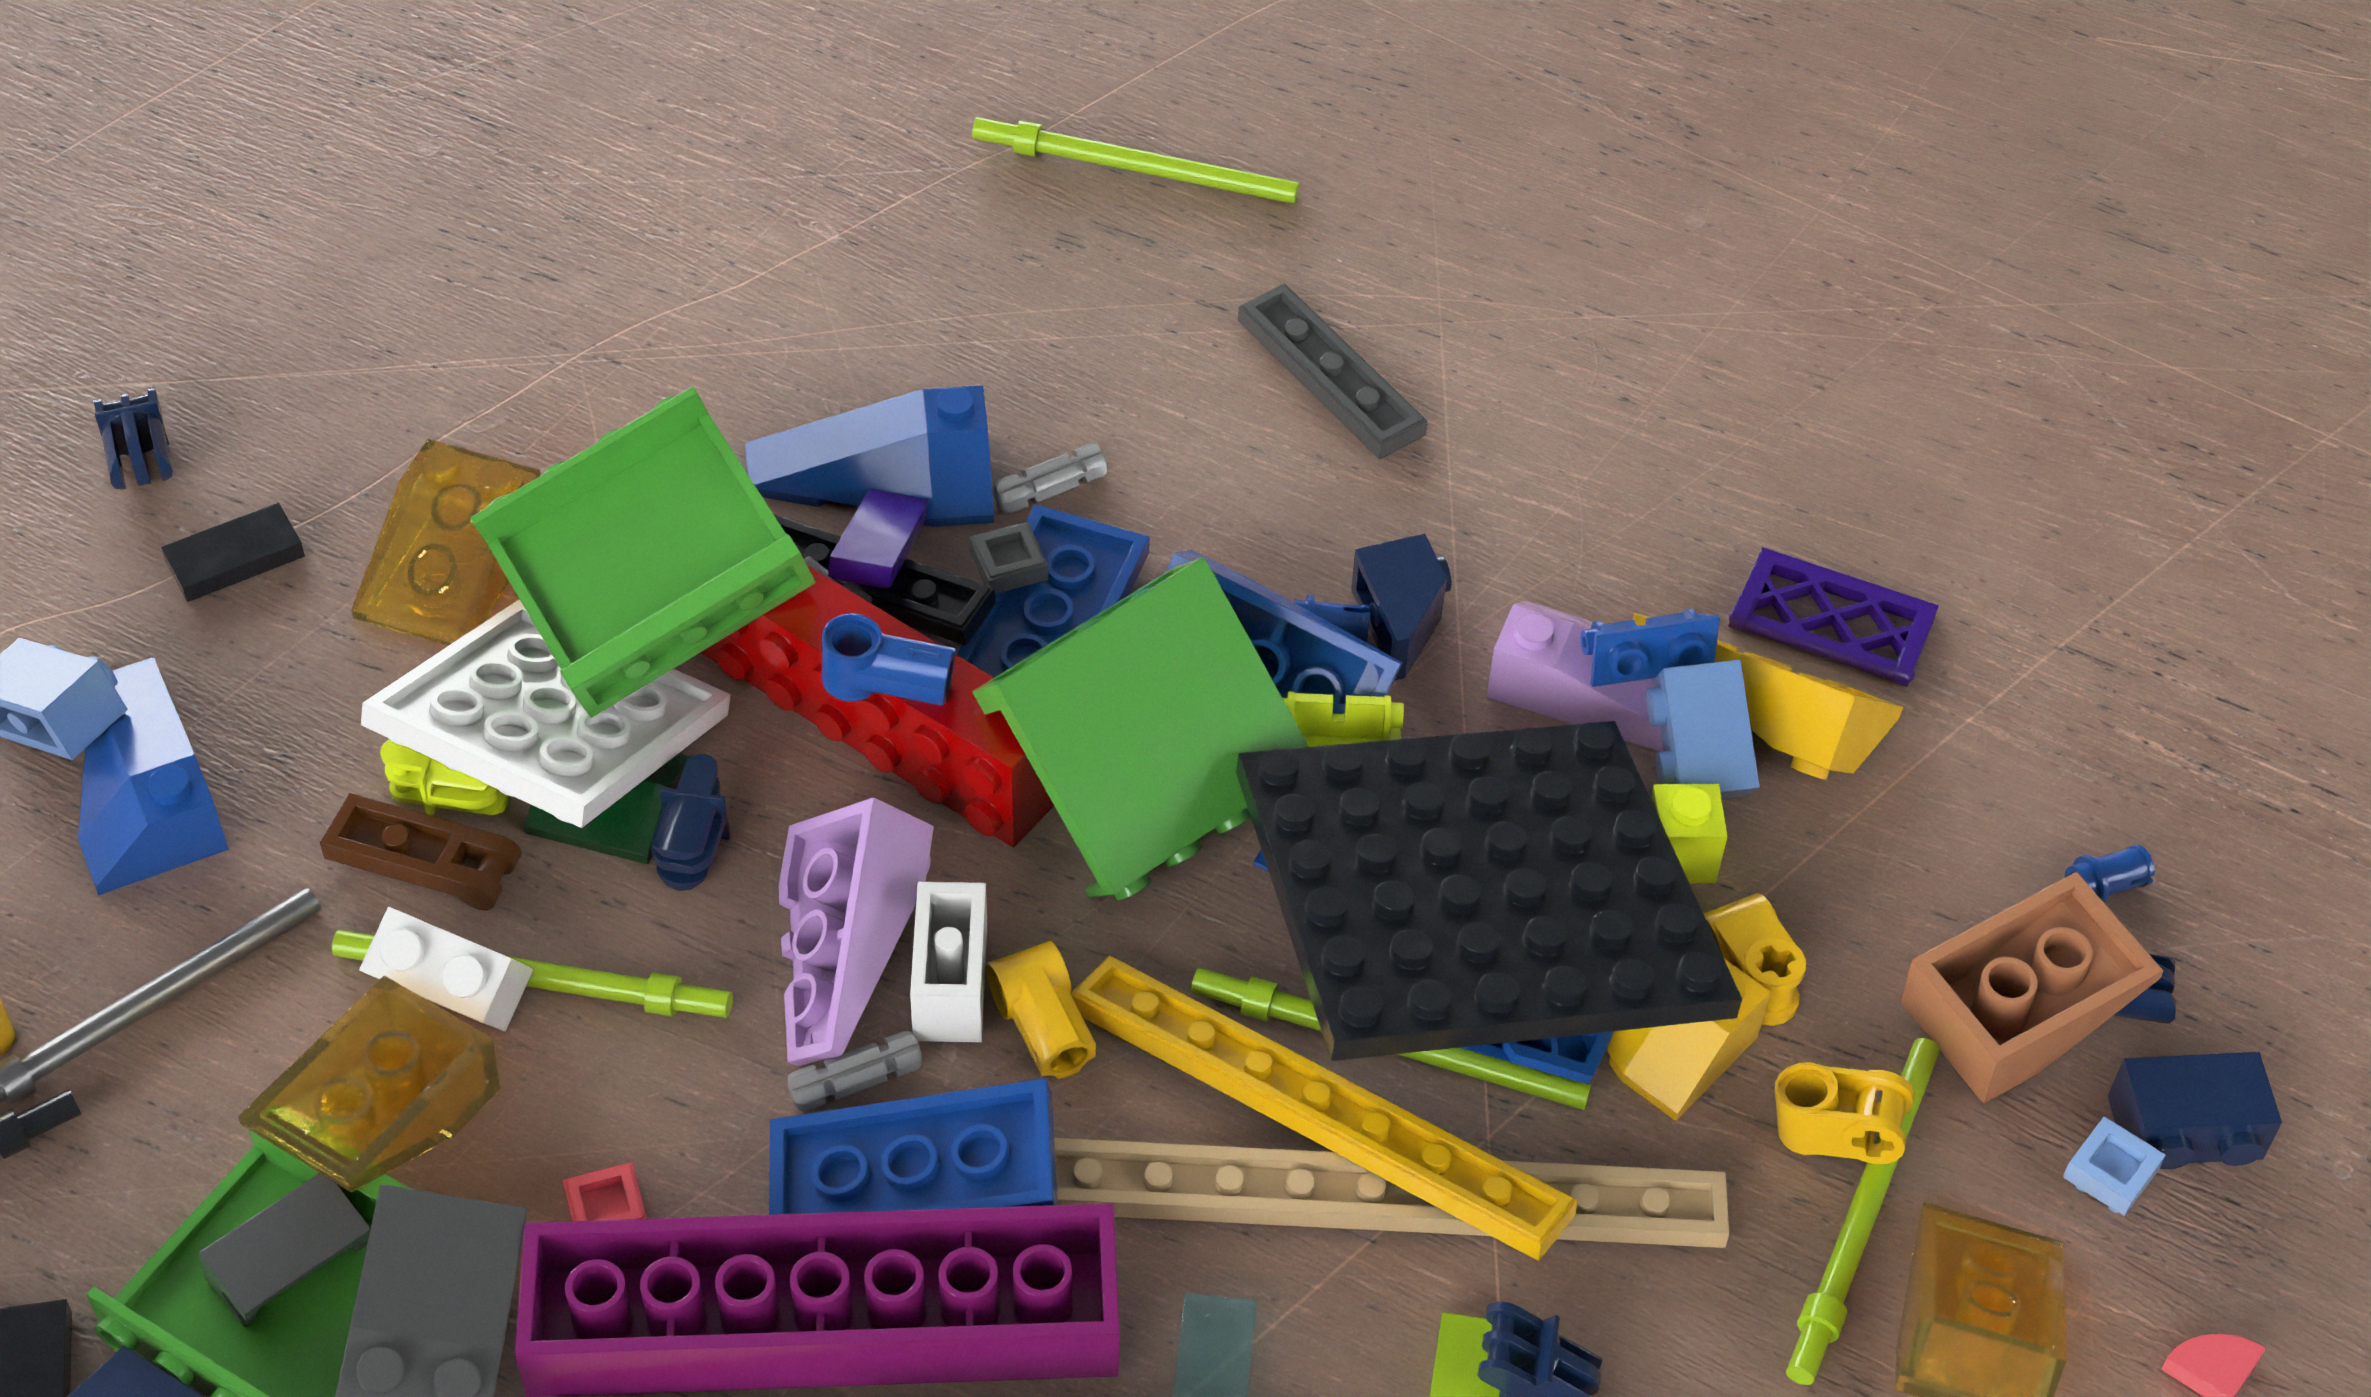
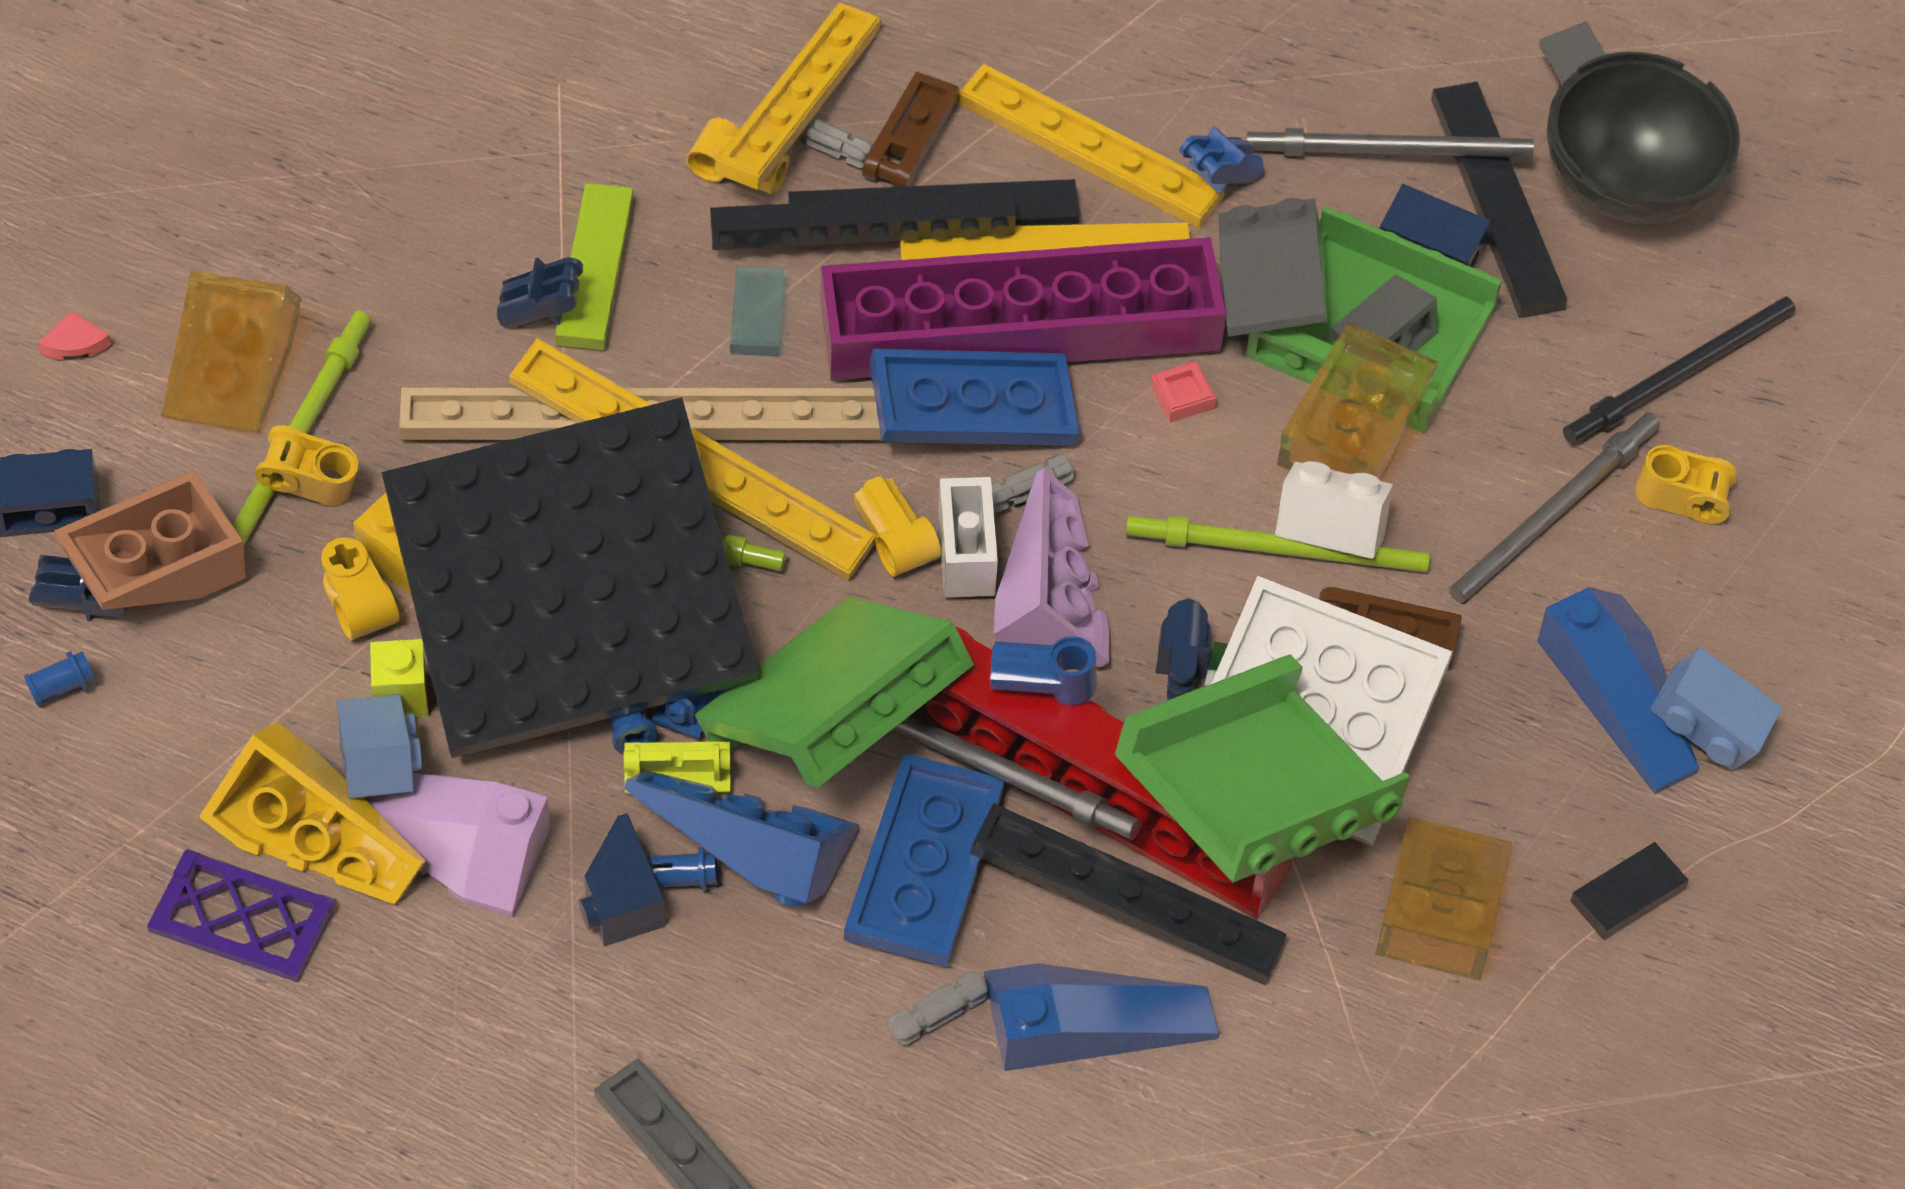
camera: 175 degrees right, 5 degrees up
(132, 429) = (1754, 982): dark blue arm -> none
(878, 539) = (1076, 884): dark purple tile -> none
(1008, 557) = (964, 887): dark grey tile -> none
(1636, 653) = (395, 795): blue hinge -> none
(2114, 1166) = (117, 440): light blue tile -> none

